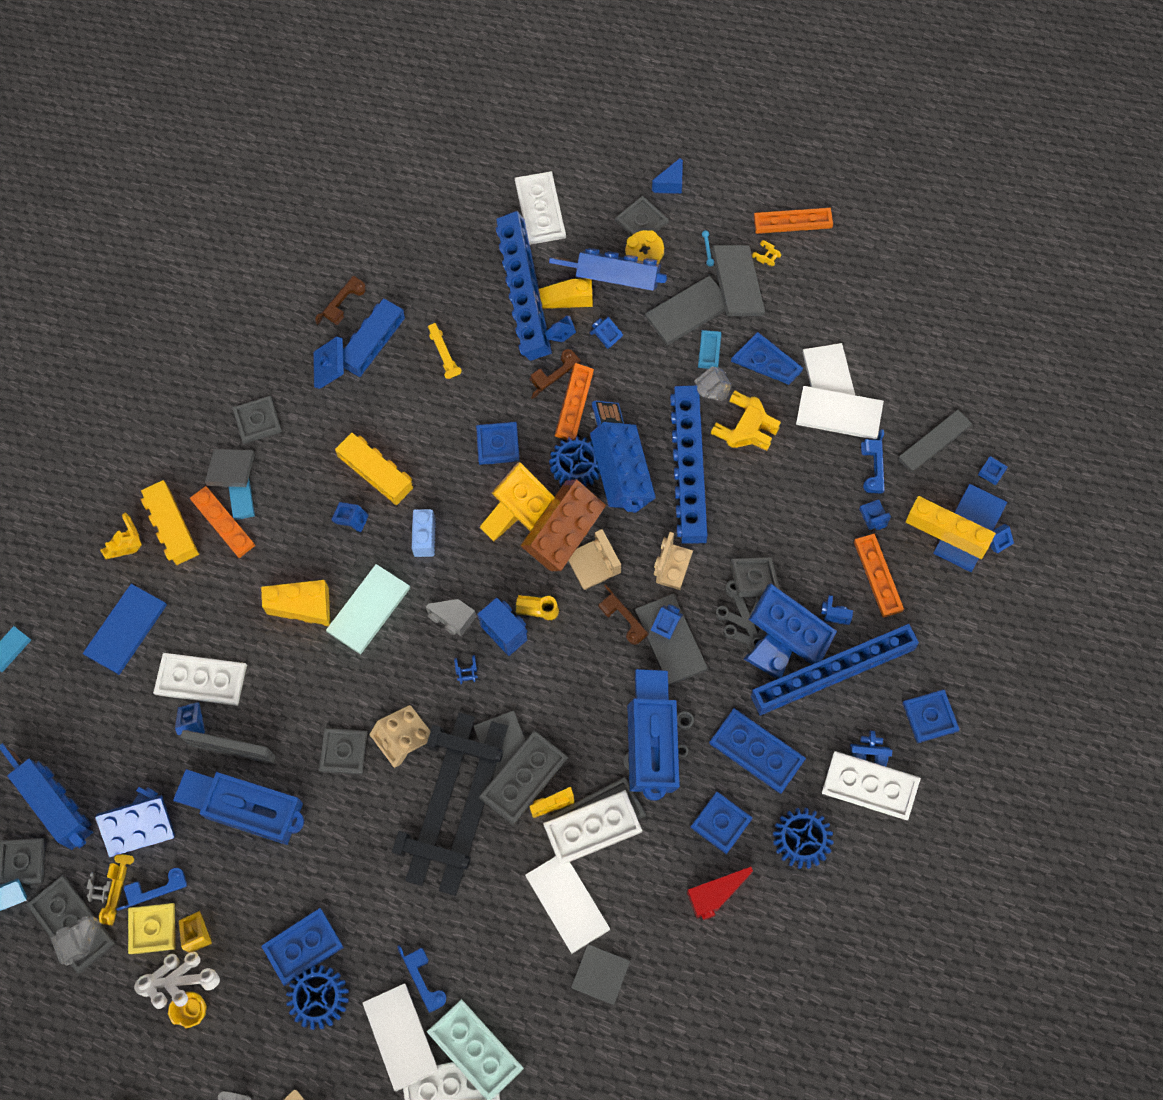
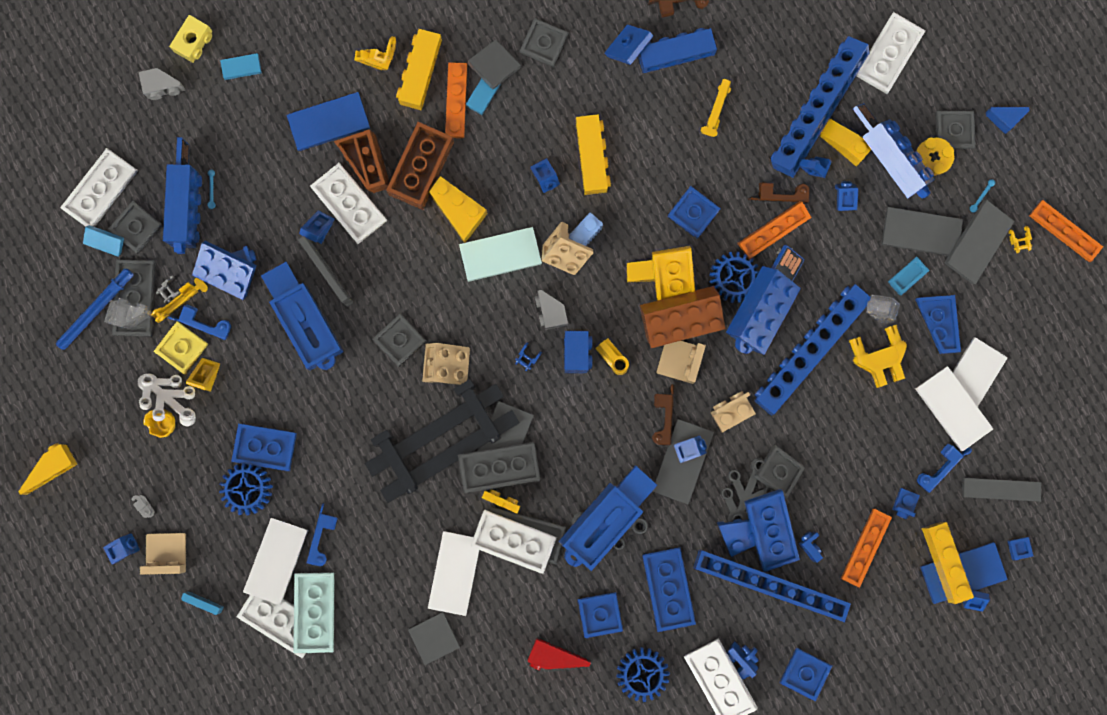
camera: 35 degrees right, 15 degrees up
(41, 964) = (94, 309): none -> blue axle
(76, 783) = (211, 204): none -> dark azure hinge
(184, 629) = (366, 159): none -> dark orange wedge
(236, 595) = (420, 165): none -> dark orange brick
(420, 557) = (564, 252): none -> tan bracket

